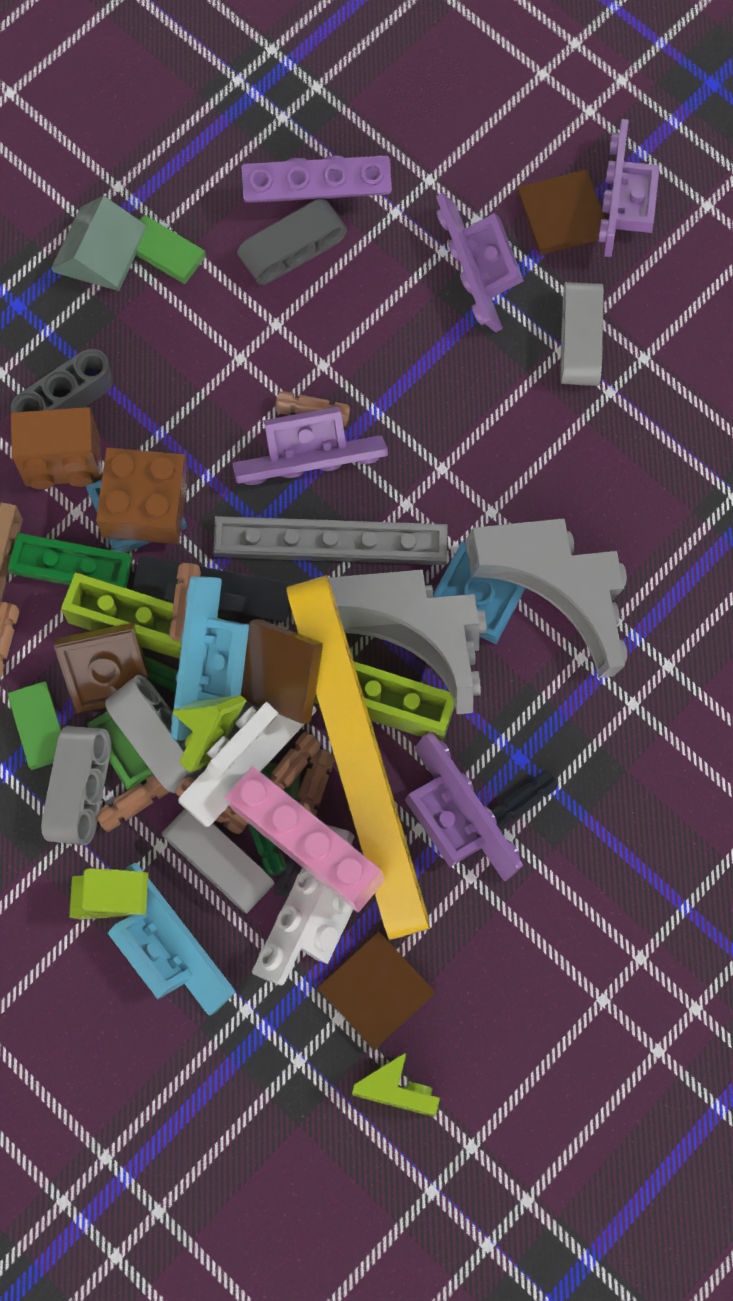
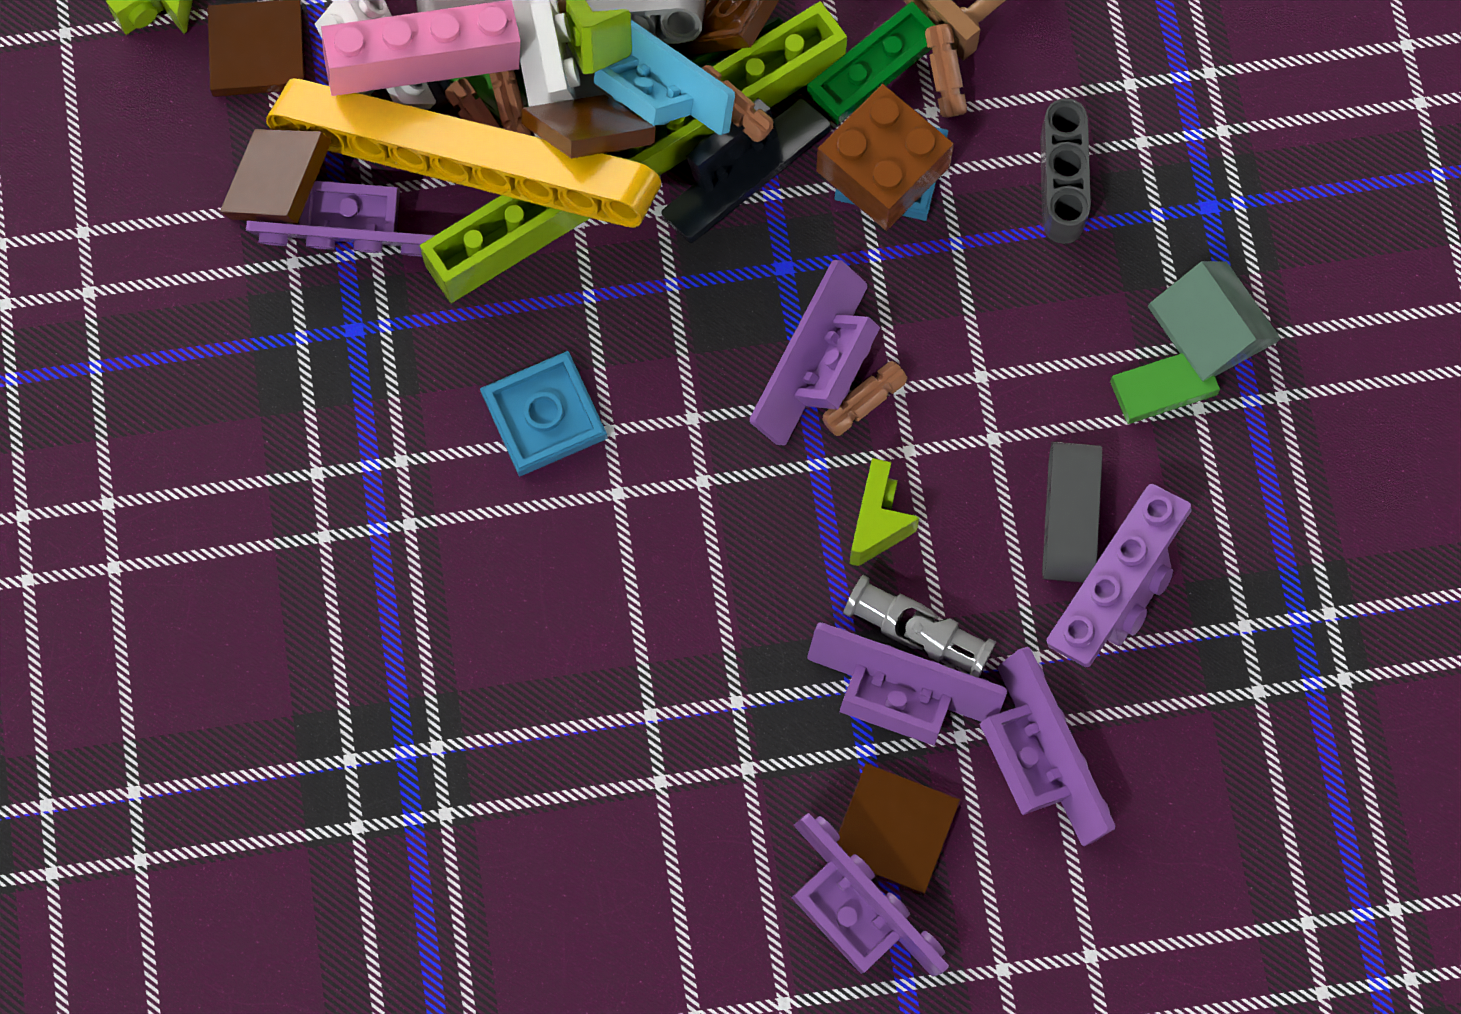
camera: 130 degrees right, 0 degrees up
(44, 511) = (946, 70): none -> nougat axle
(56, 447) = (998, 113): dark orange brick -> none
(330, 540) = (709, 316): light grey tile -> none
(393, 342) = (878, 527): none -> lime slope
(407, 614) = (525, 320): light grey arch -> none
(435, 275) = (921, 630): none -> light grey piece
(454, 161) = (1040, 752): none -> medium lavender bracket
(465, 885) = (276, 176): none -> tile
(524, 799) = (311, 293): black axle -> none
(578, 585) = (466, 498): light grey arch -> none
(581, 334) = (733, 726): light grey beam -> none

